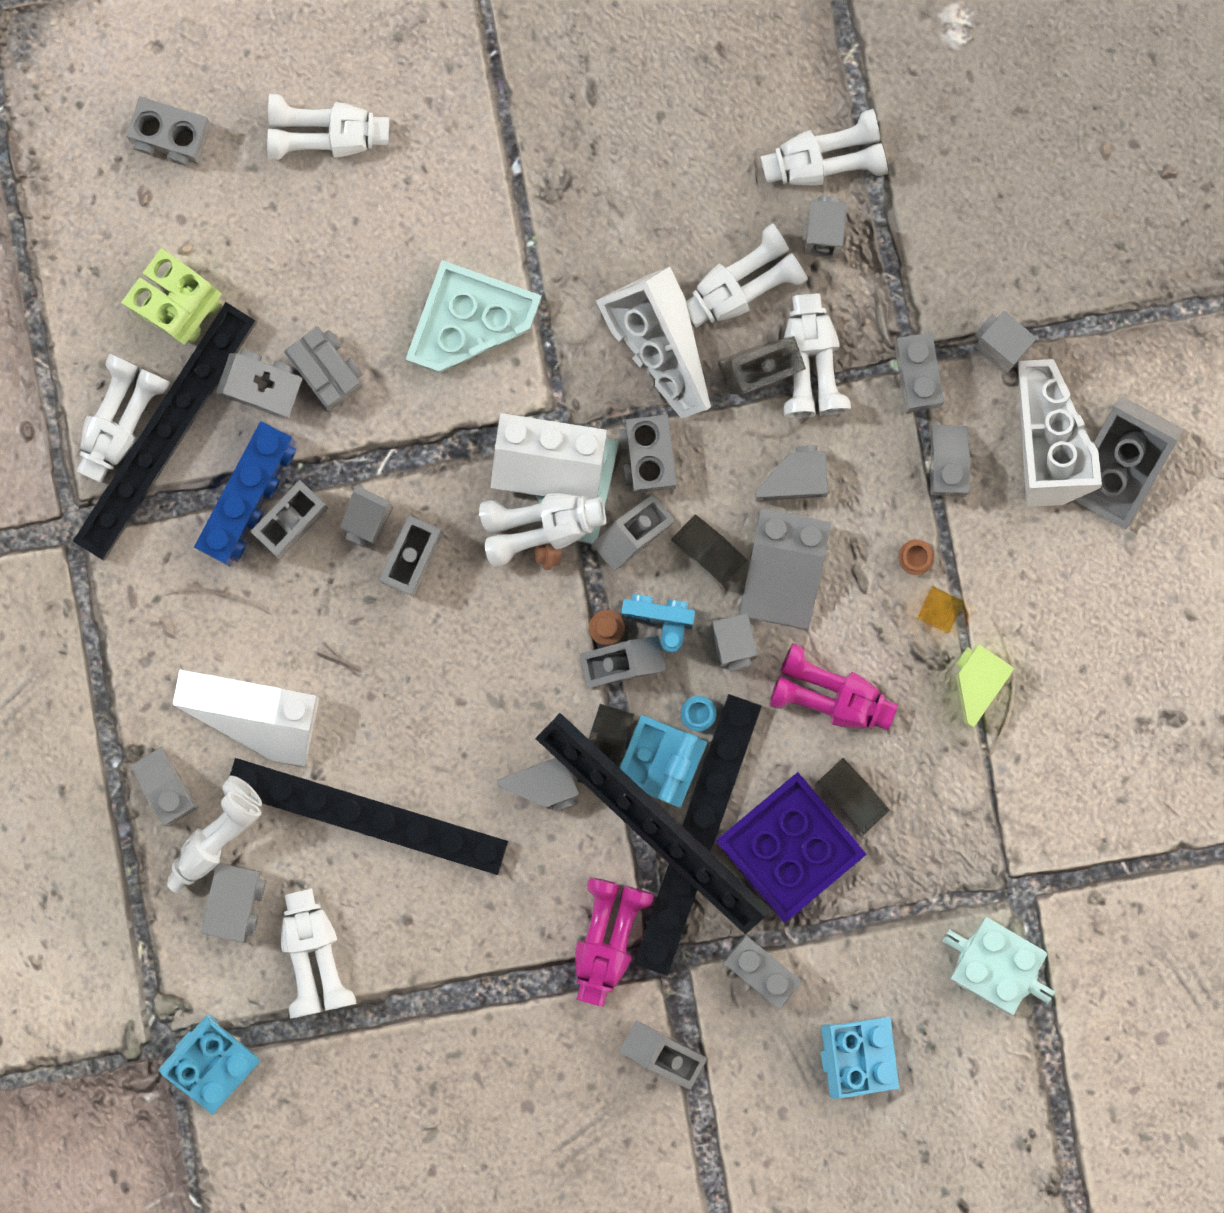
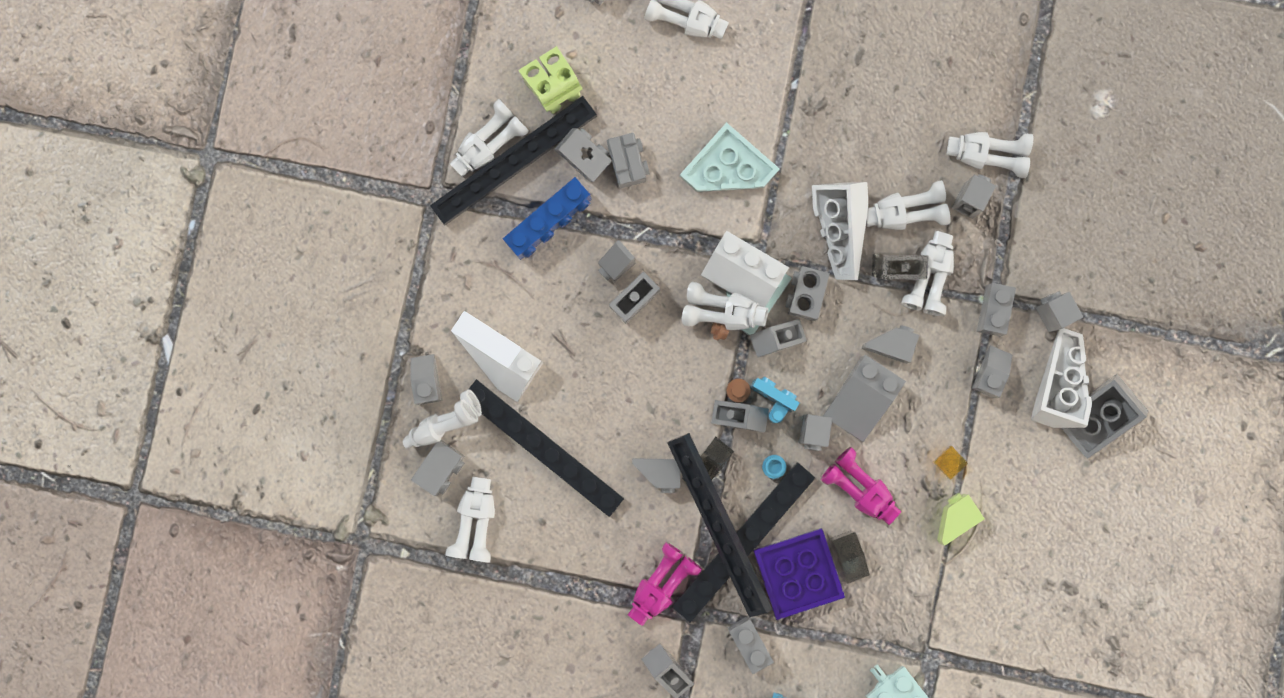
camera: 25 degrees right, 0 degrees up
(209, 1064) = (383, 563): medium azure plate -> none
(289, 519) = (568, 245): light grey brick -> none
(662, 760) = (740, 487): medium azure plate -> none
(709, 550) = (821, 368): clear smoke slope -> none
(916, 557) = (948, 423): nougat plate -> none

